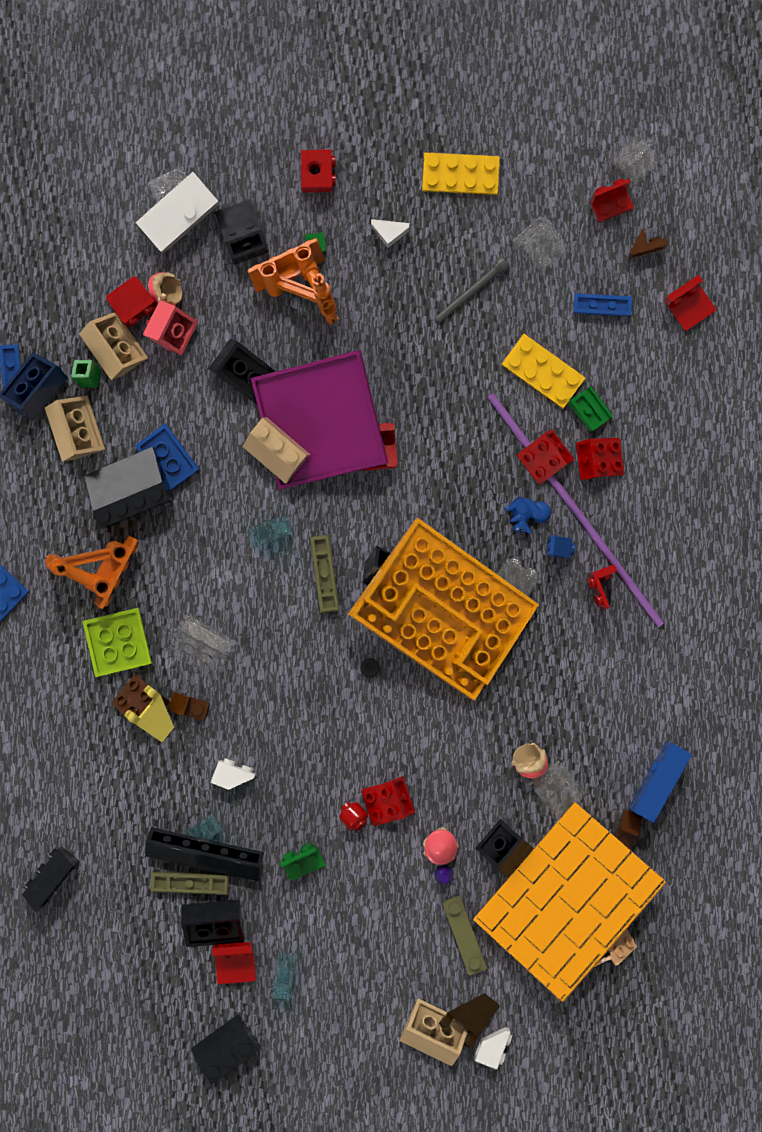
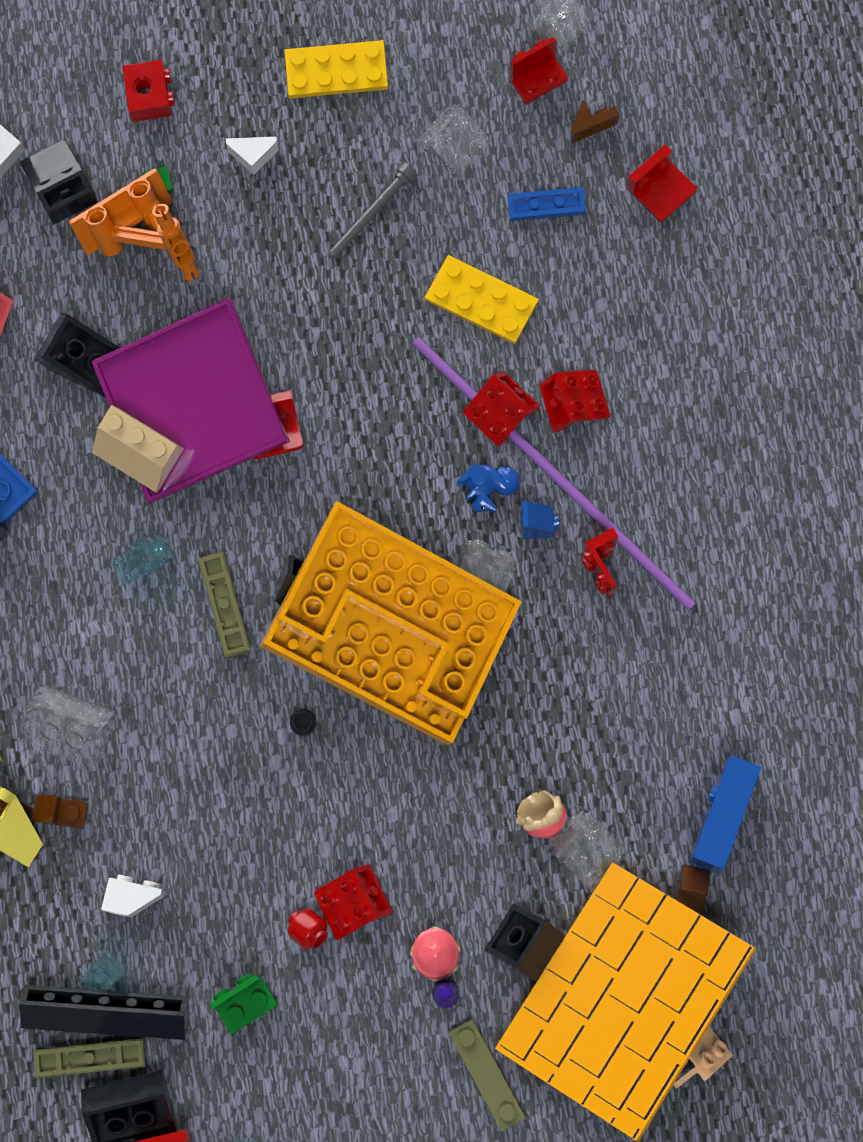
camera: 10 degrees left, 10 degrees down
(590, 409) = (551, 338): green plate -> none

